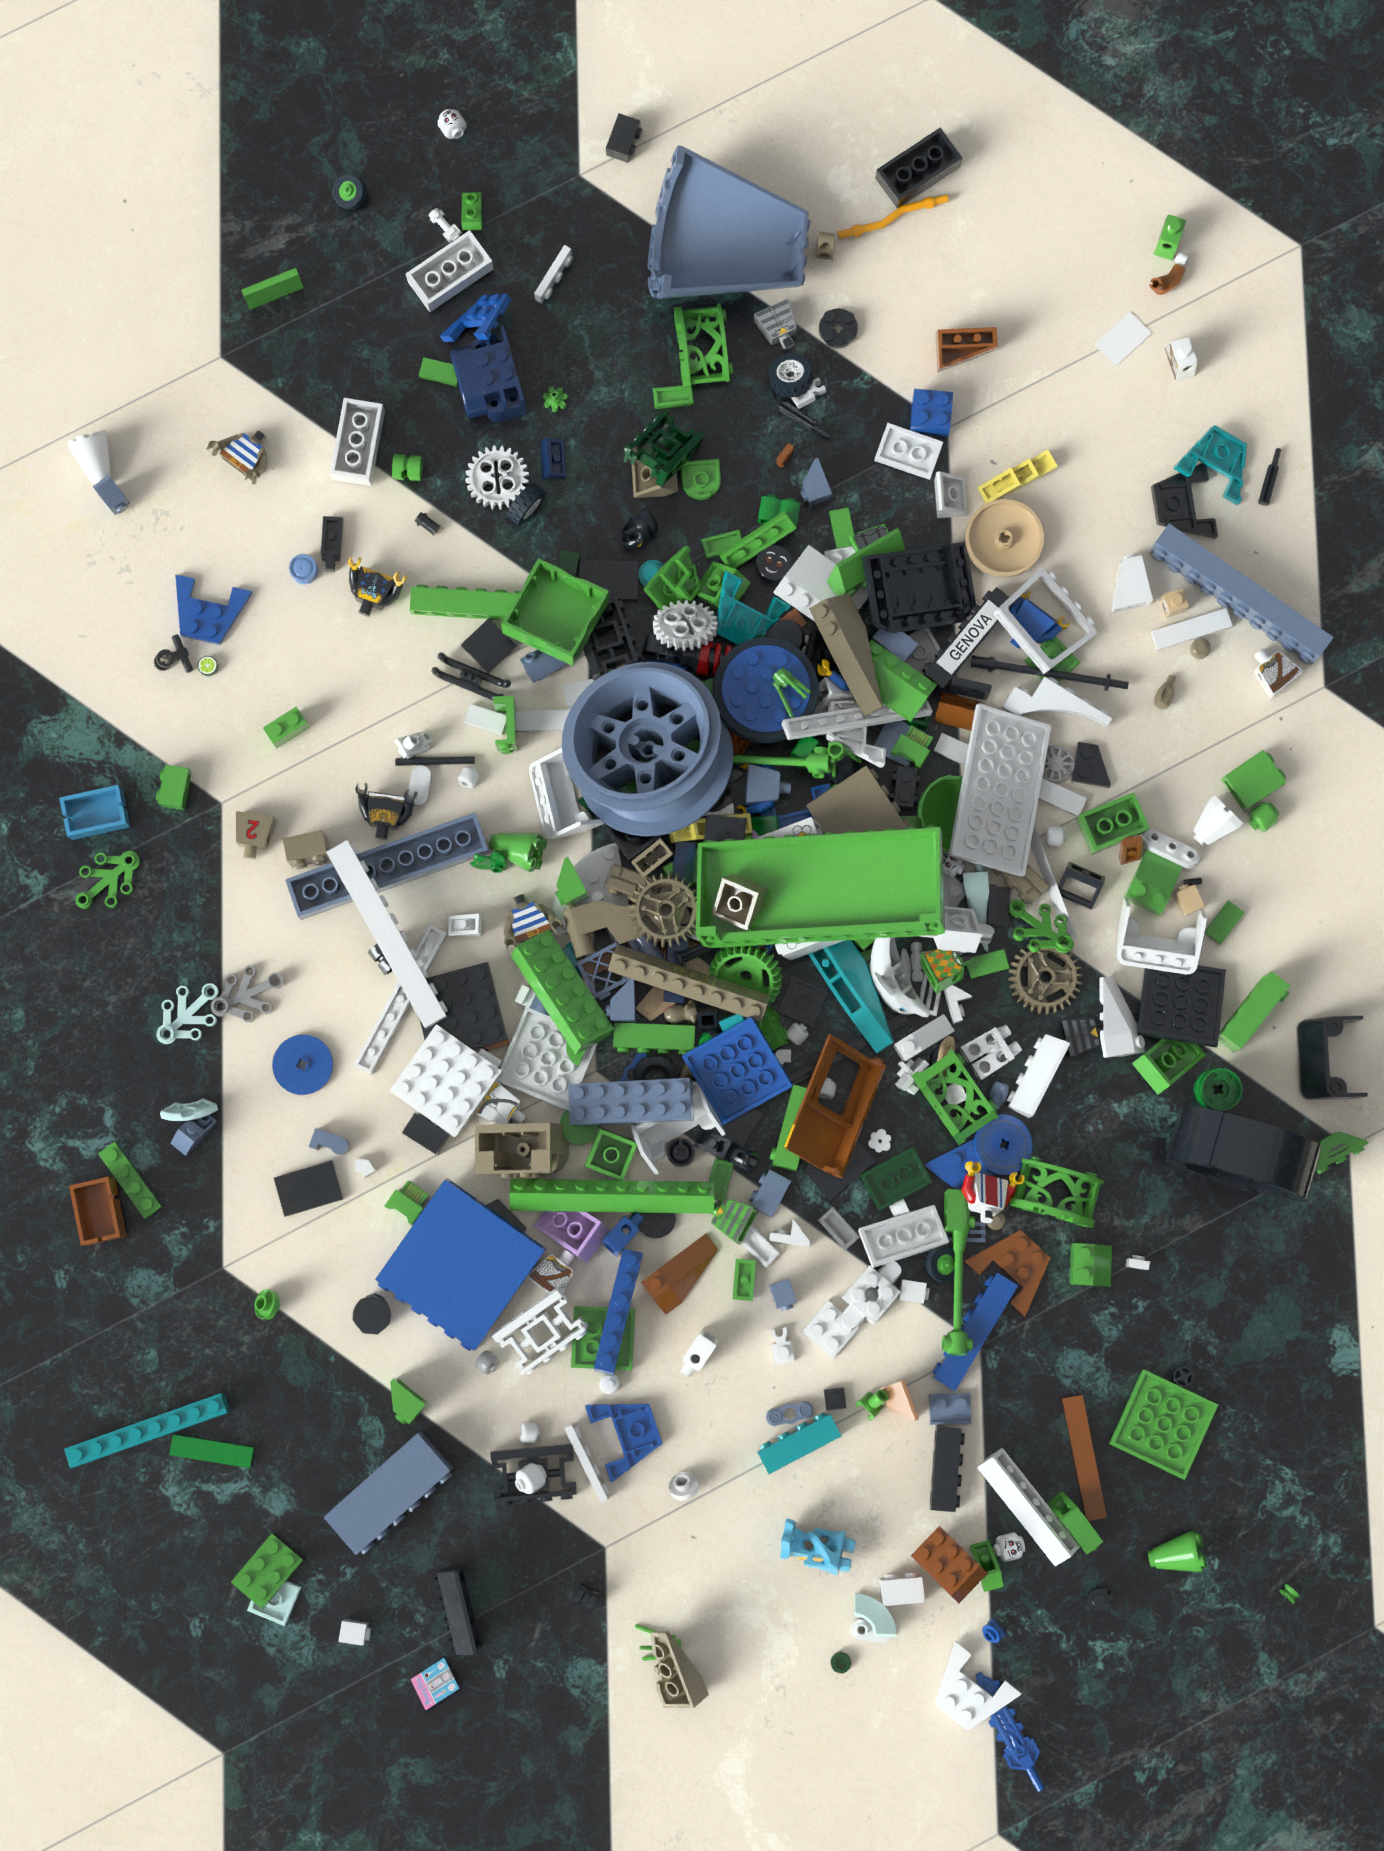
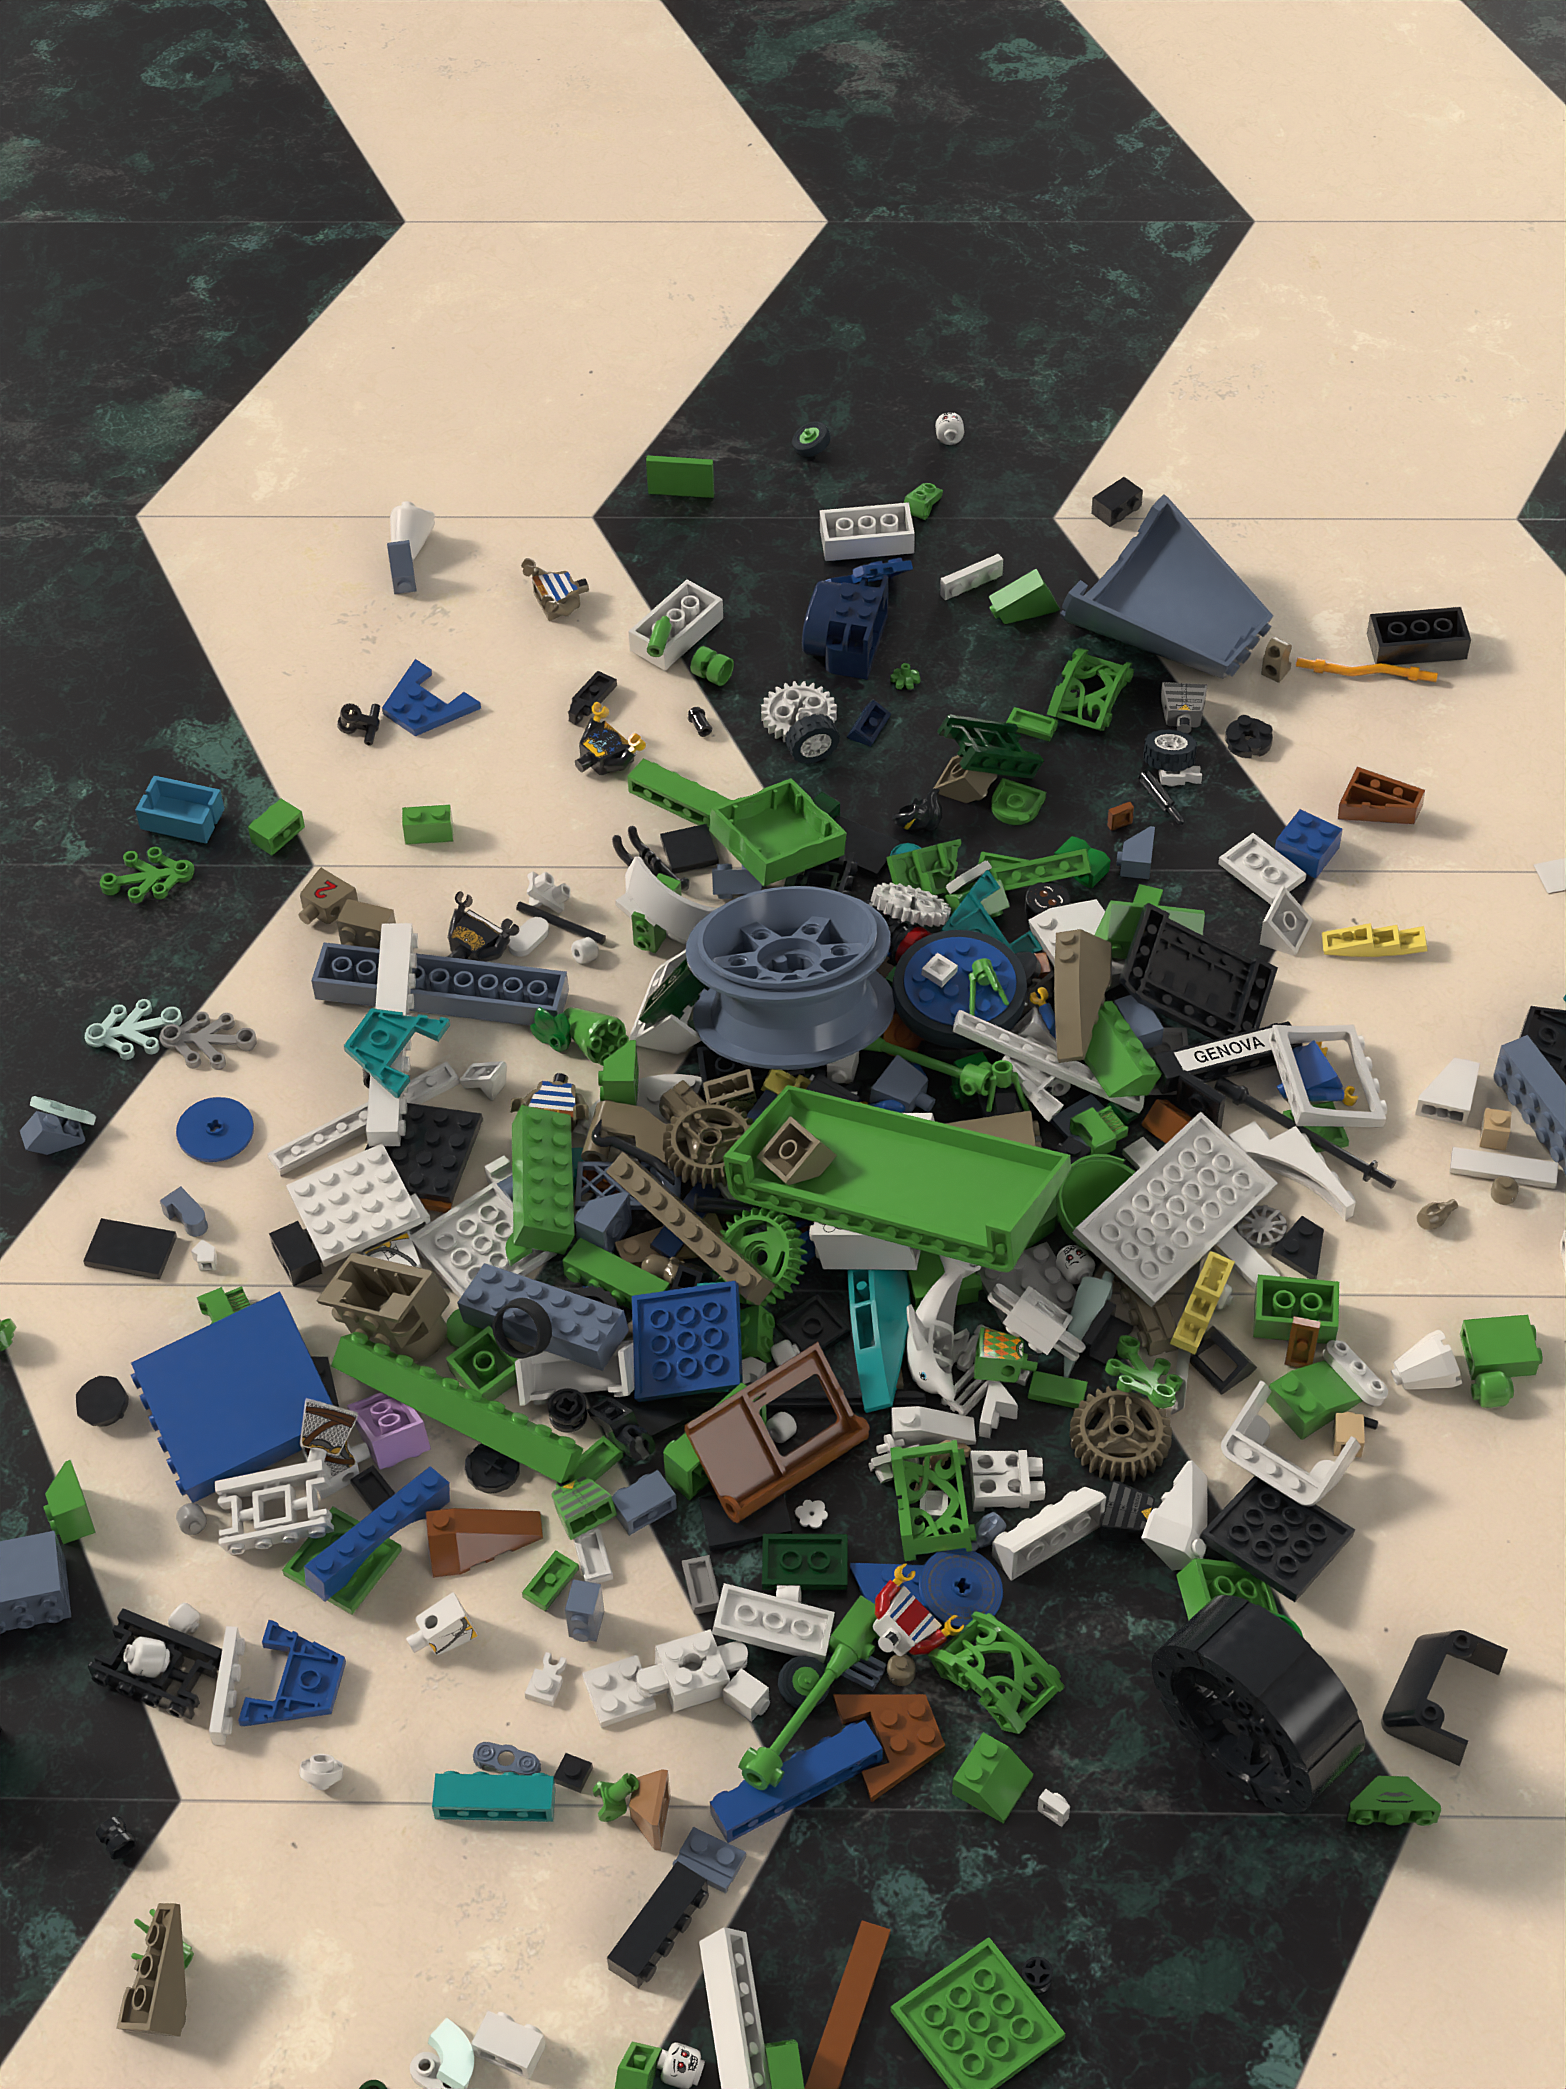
camera: 30 degrees right, 30 degrees down
(207, 666) = (389, 745): tile -> none
(303, 569) = (545, 706): medium blue wheel -> none
(359, 470) = (659, 637): none -> bright green cylinder
(390, 952) = (382, 1038): none -> teal wing
(438, 372) = (794, 606): bright green tile -> none
(451, 232) = (885, 491): white bar -> none
(531, 730) = (662, 904): none -> white windscreen
(544, 1265) = (325, 1428): none -> torso
(564, 802) = (672, 995): none -> dark green slope
(593, 1278) = (372, 1487): none -> black tile
(606, 280) = (1023, 599): none -> bright green slope
(609, 1384) = (315, 1615): white piece -> none
(613, 942) = (631, 1150): none -> black piece
(616, 1239) = (441, 1452): blue torso -> none
(629, 1114) = (541, 1320): none -> black tyre
(708, 572) = (968, 877): none -> white tile
(751, 692) = (939, 970): none -> white plate
(796, 1236) = (638, 1563): white slope -> none
(829, 1553) = (438, 1944): medium azure hips -> none
(949, 1564) = (587, 2033): dark orange brick -> none
(1004, 538) = (1325, 984): tan dish -> none
(1053, 854) = (1202, 1302): none -> light yellow slope
(1224, 922) = (1381, 1482): bright green tile -> none
(1253, 1011) = (1363, 1585): bright green brick -> none

